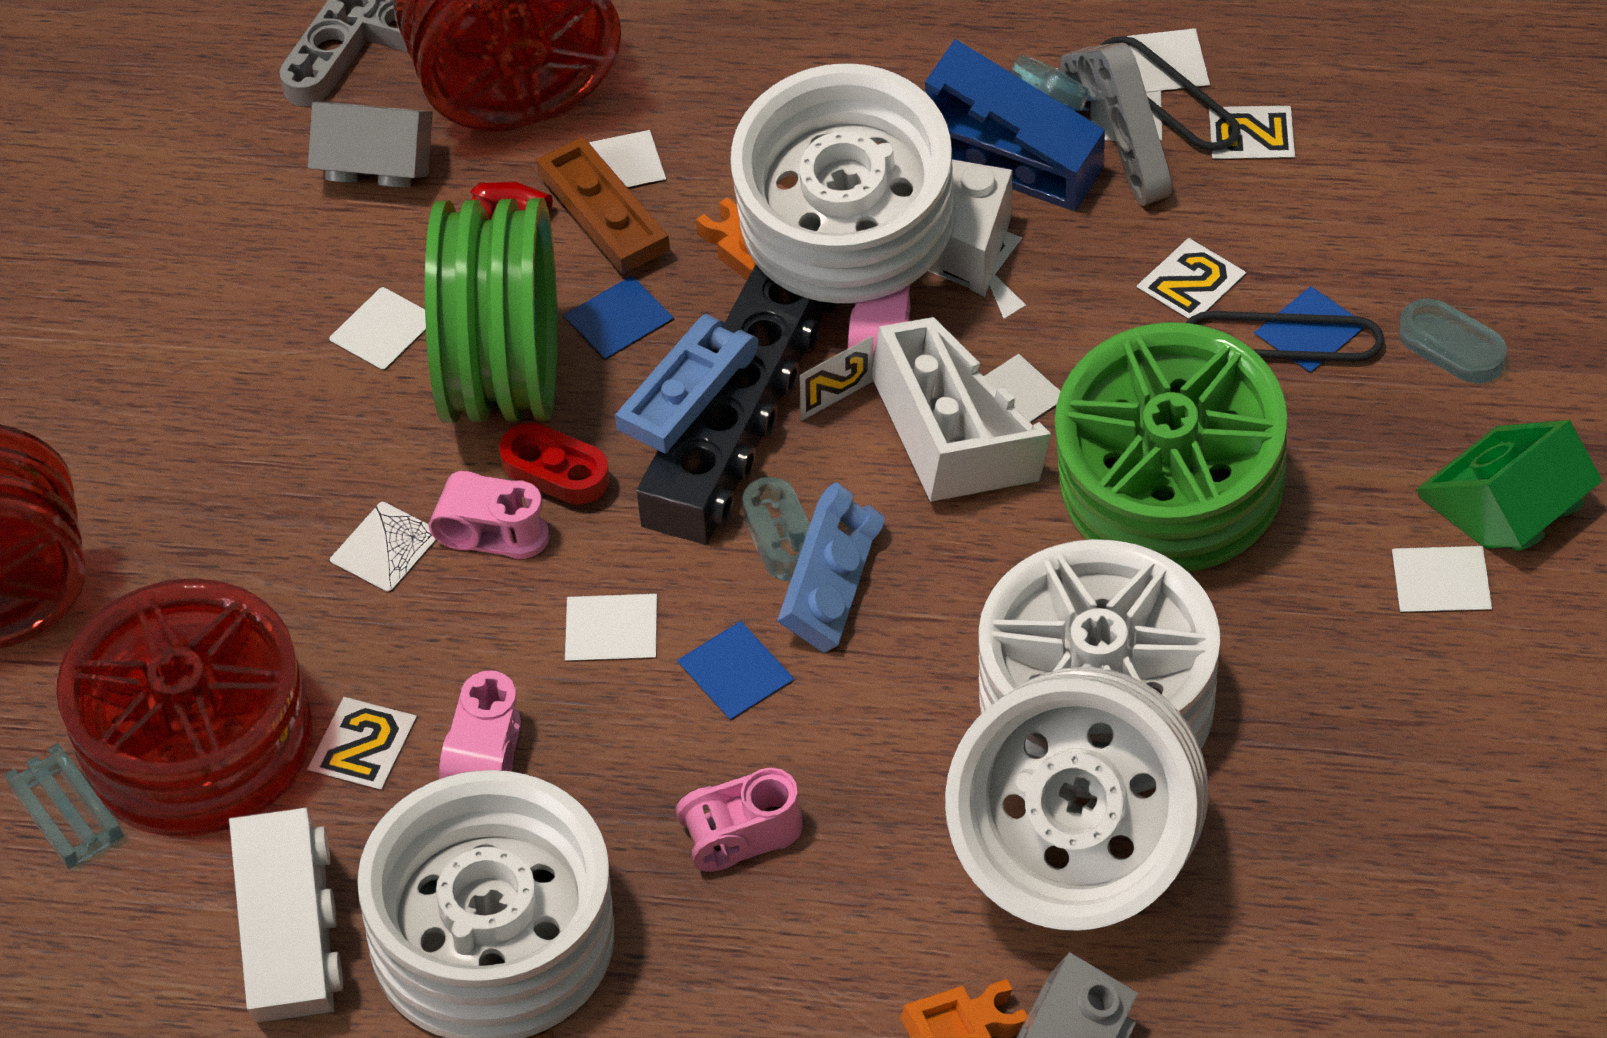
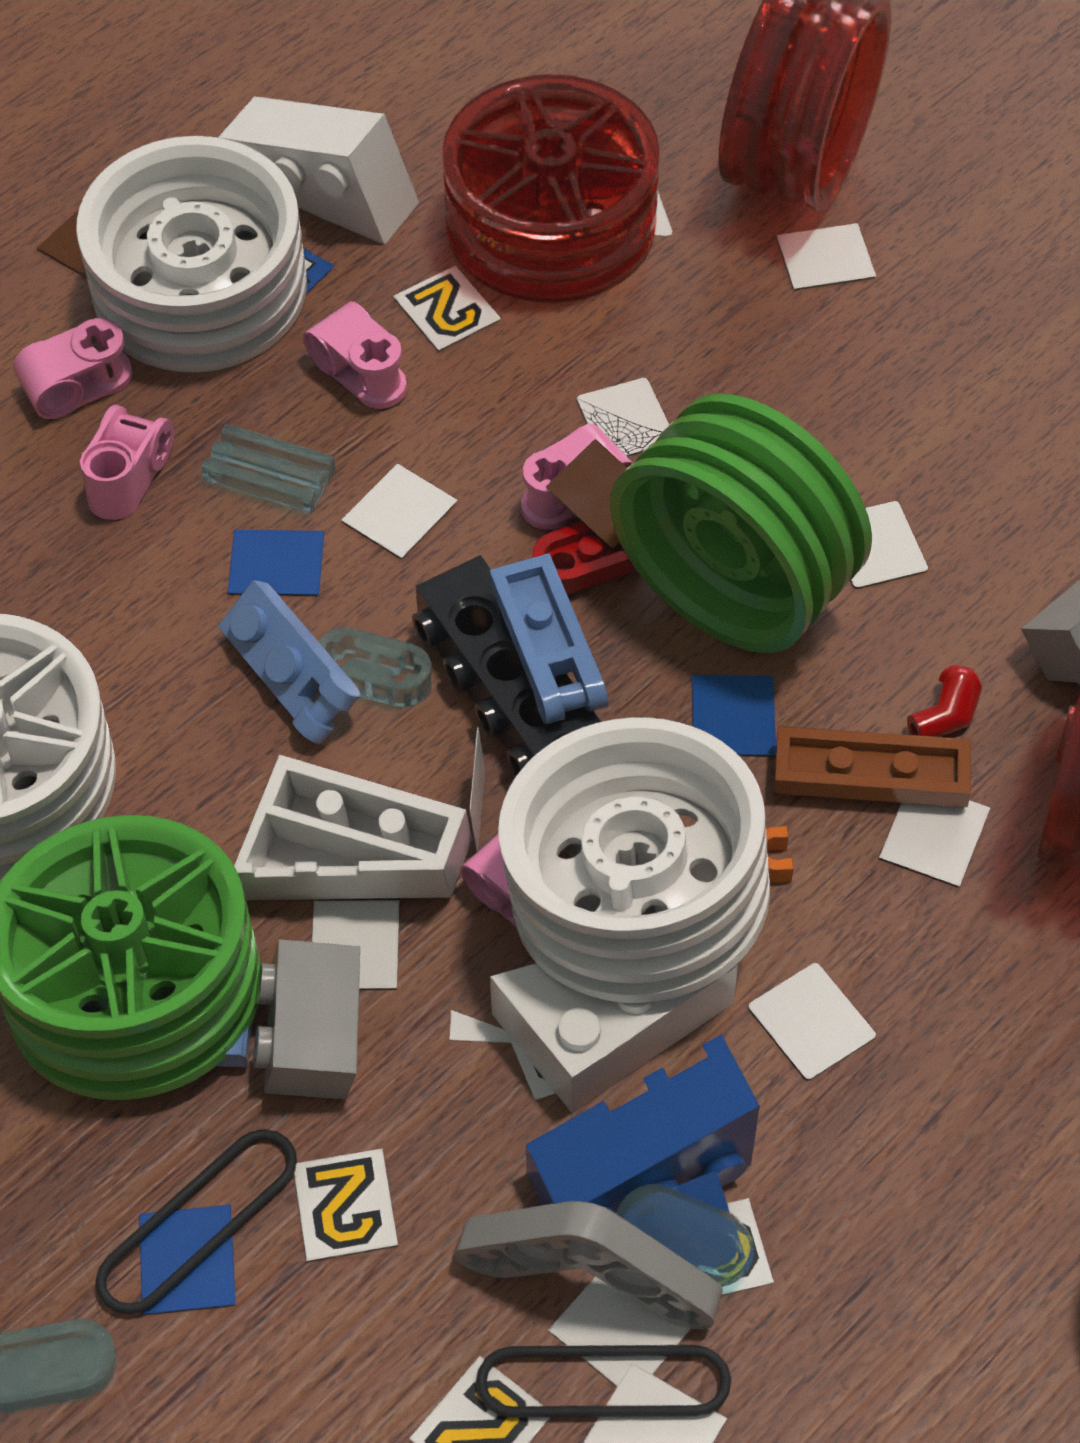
camera: 125 degrees right, 5 degrees up
(101, 524) = (826, 256): none -> white sticker
(503, 463) = (586, 489): none -> reddish brown sticker
(641, 692) = (273, 461): none -> clear light blue tile
(684, 932) = (70, 371): none -> bright pink piece
(1075, 333) = (310, 1020): none -> light grey brick

